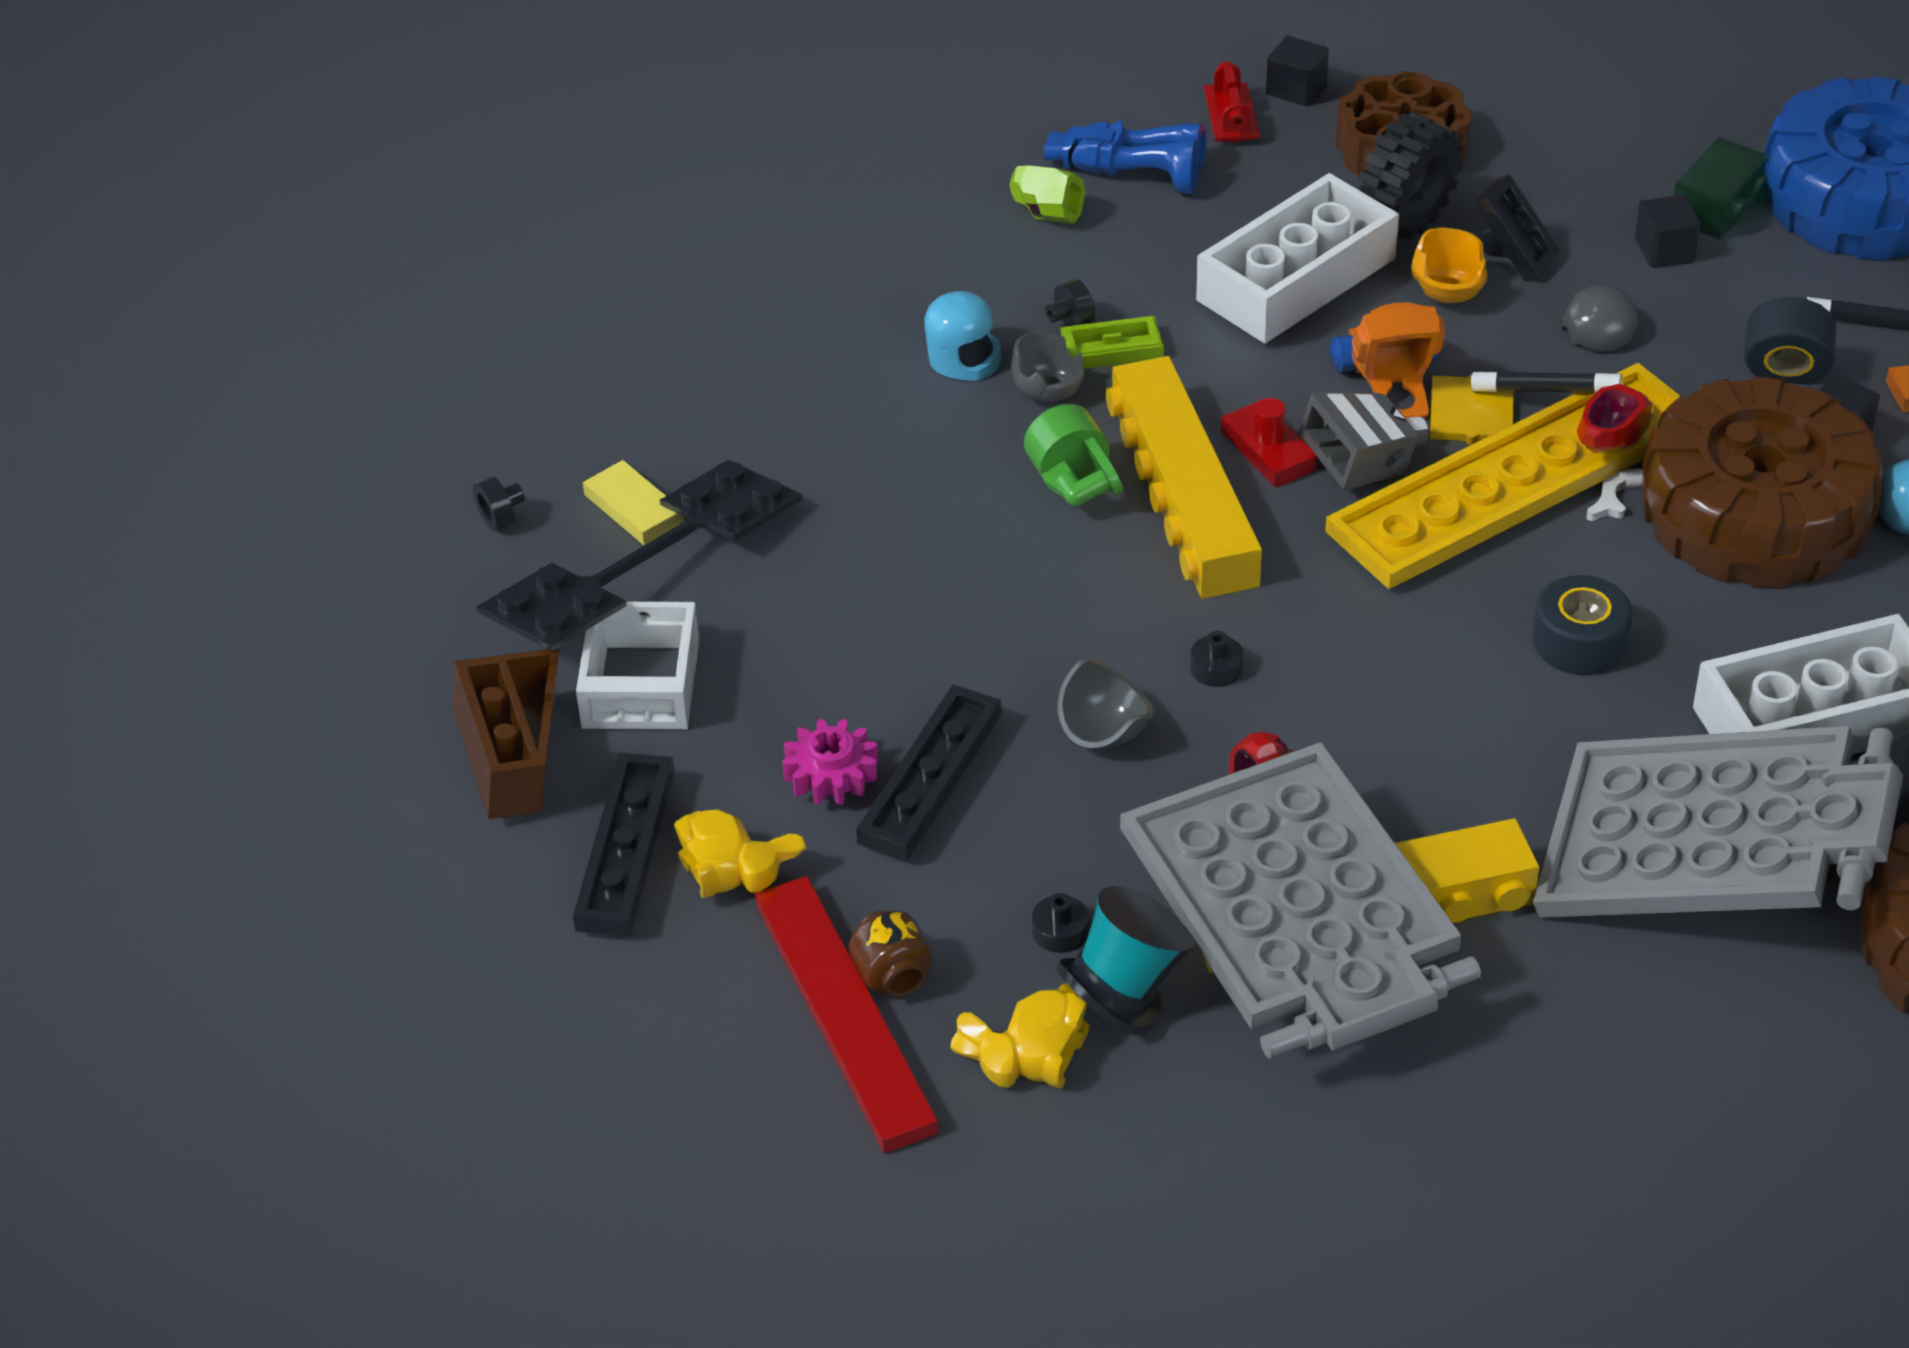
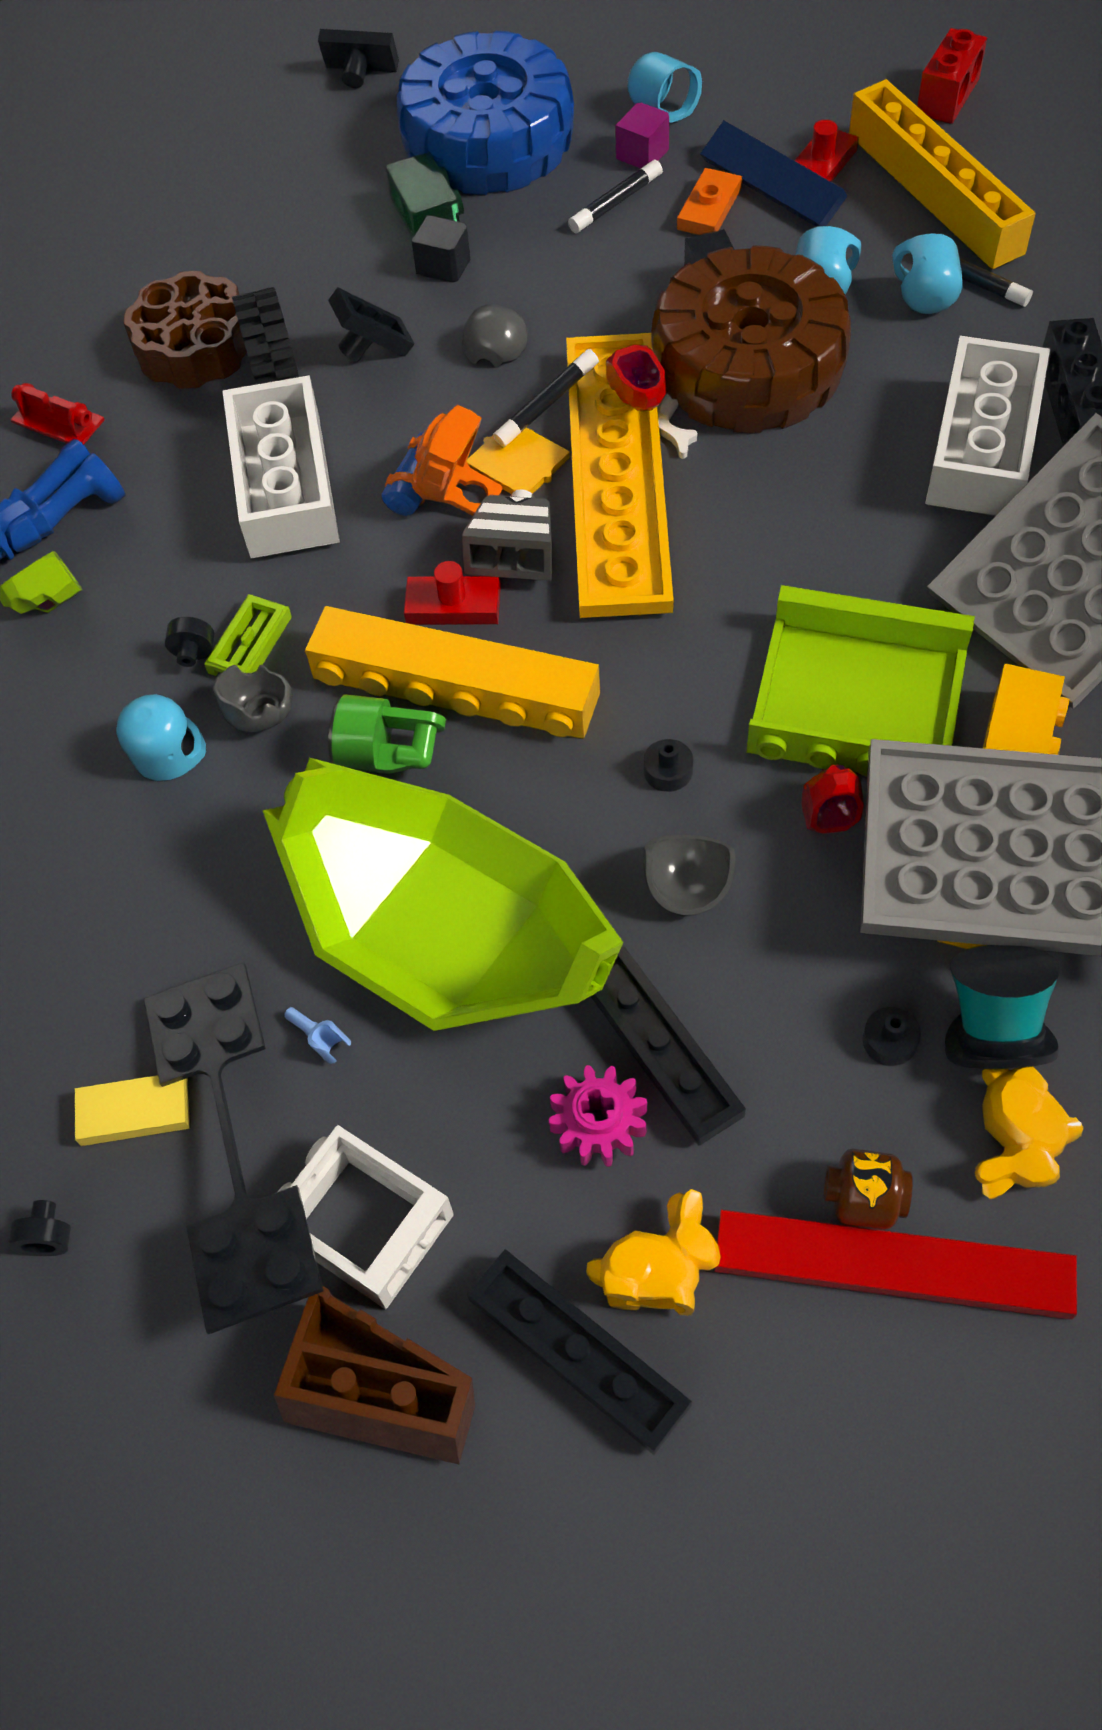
camera: 55 degrees left, 15 degrees up
(774, 573) = (320, 1035): none -> light blue hand
(941, 547) = (435, 900): none -> lime panel
(1297, 71) = (60, 353): black piece -> none
(1426, 743) = (856, 674): none -> lime panel
(1449, 265) = (373, 384): light orange hair -> none
(1582, 624) = (808, 517): black wheel -> none
(1790, 340) = (621, 246): black wheel -> none
(1864, 48) = (357, 53): none -> black tile

